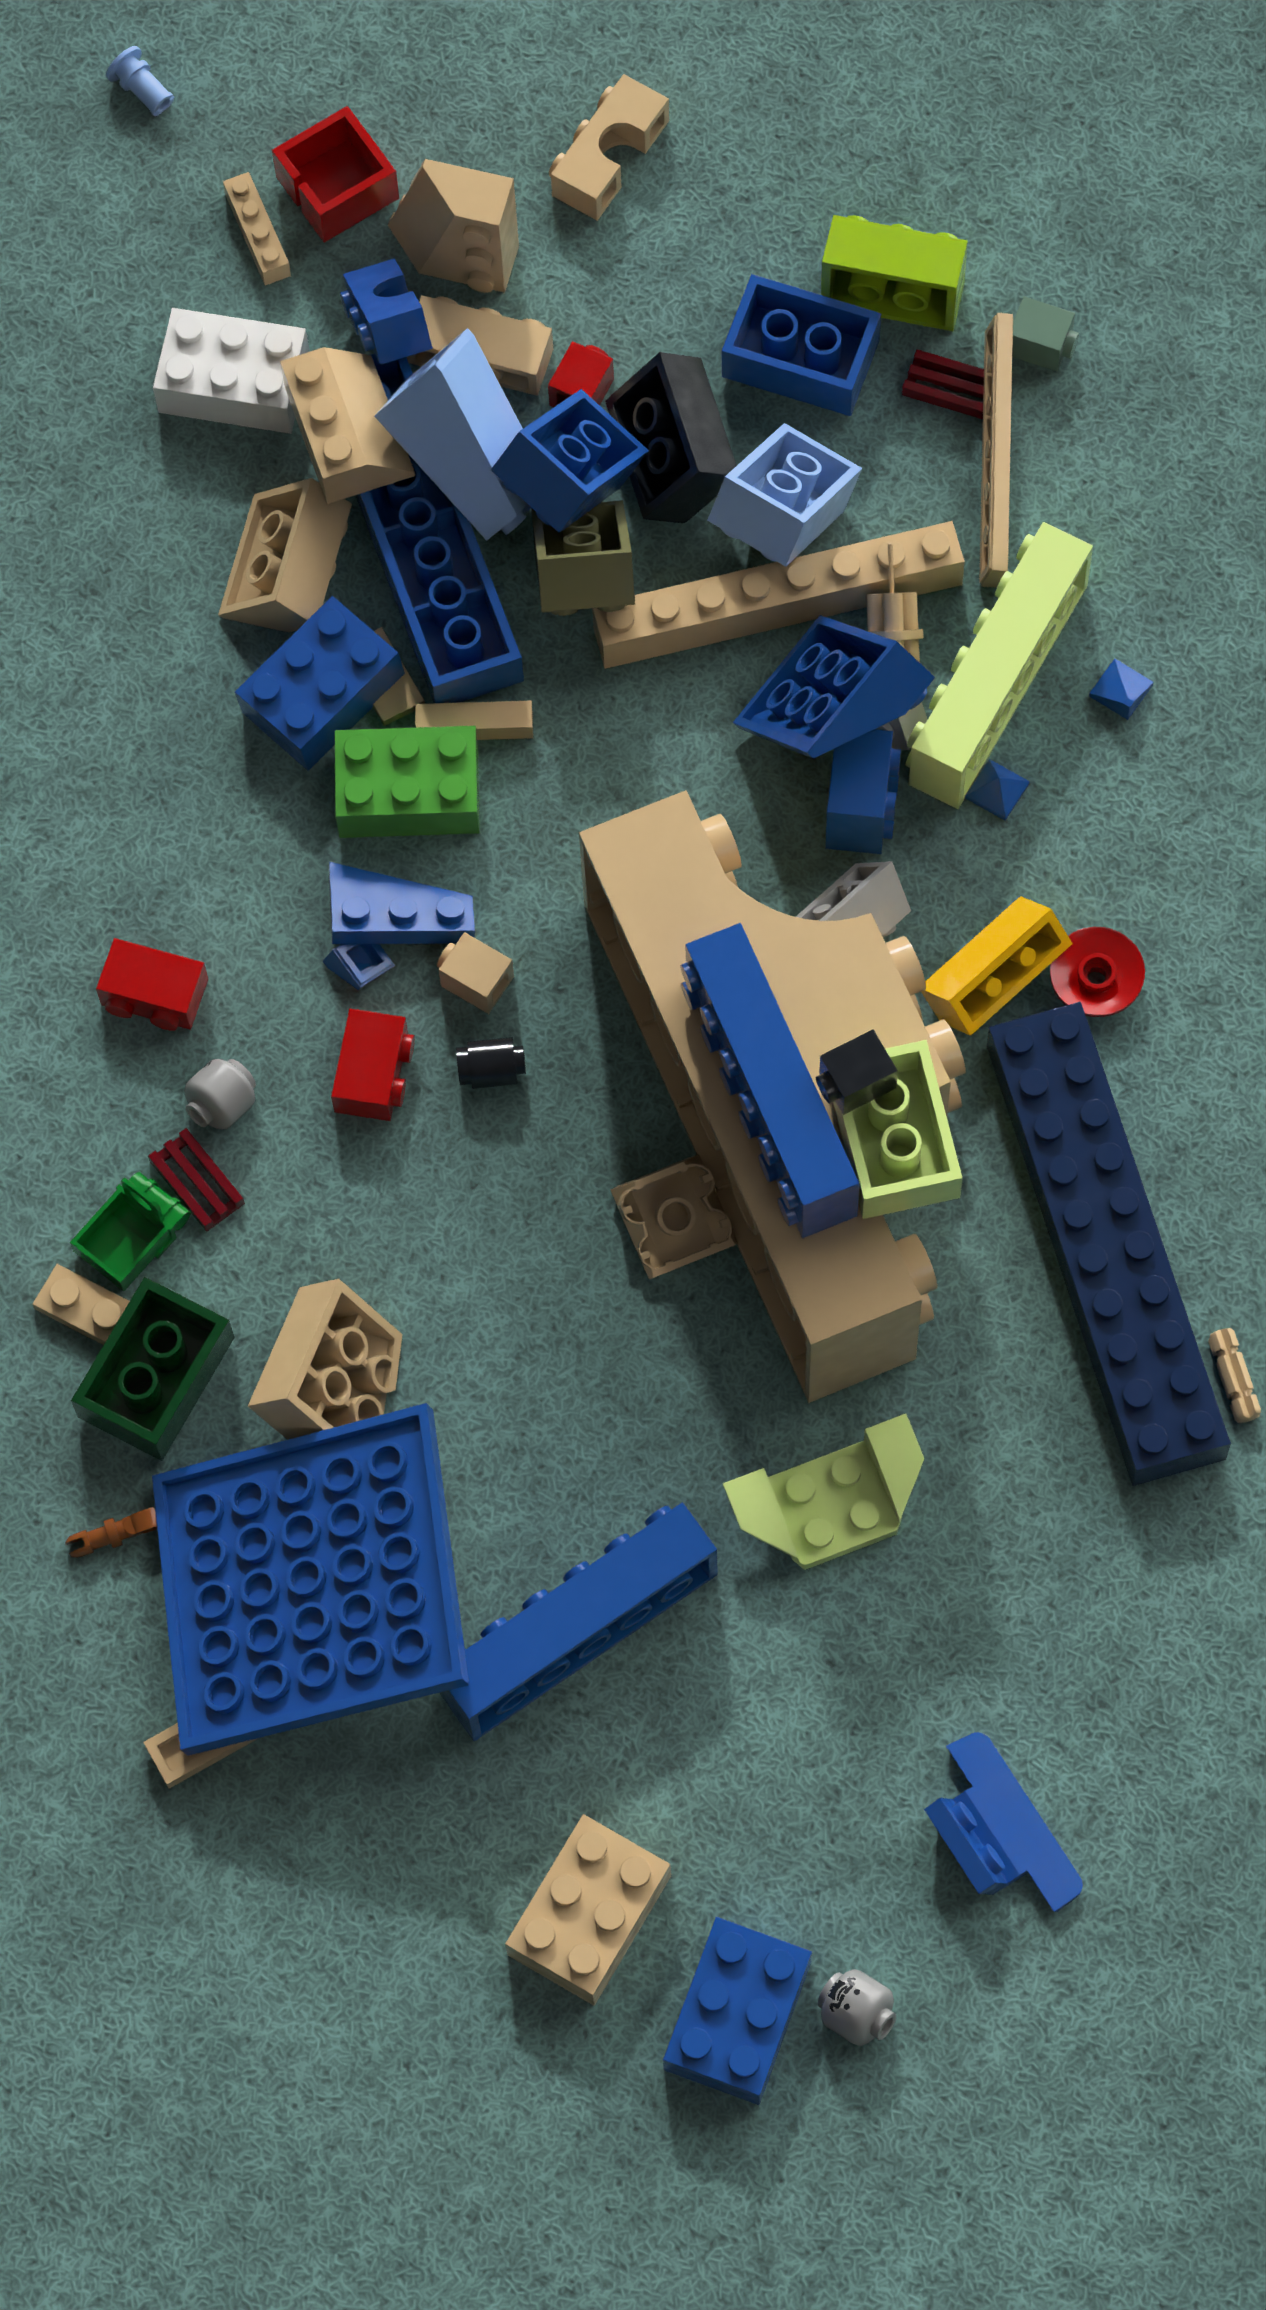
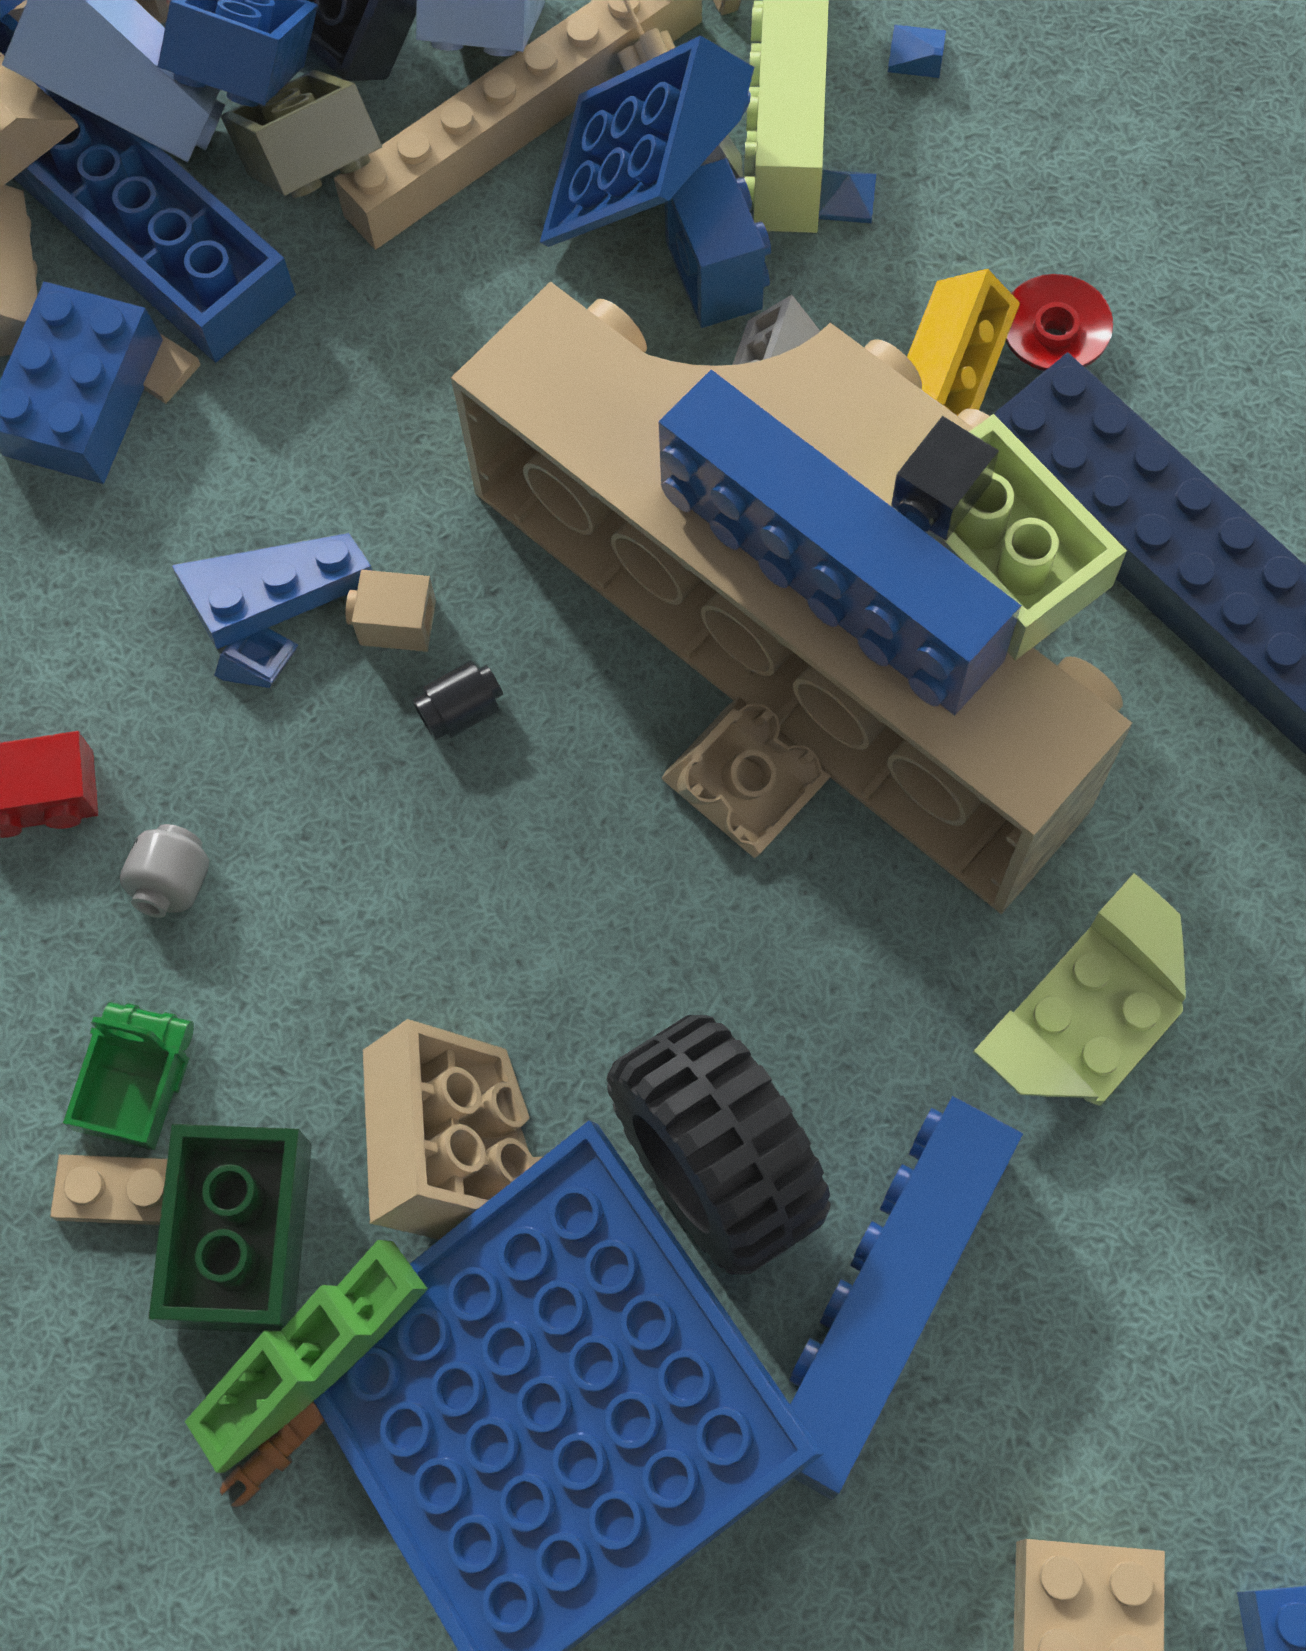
camera: 25 degrees left, 0 degrees up
(159, 1478) = (305, 1358): none -> bright green slope
(172, 1149) = (139, 958): dark red tile -> none
(371, 1065) = (324, 762): red brick -> none
(406, 781) = (219, 443): bright green brick -> none
(491, 719) = (262, 355): tan piece -> none
(506, 1460) = (719, 1143): none -> black tyre

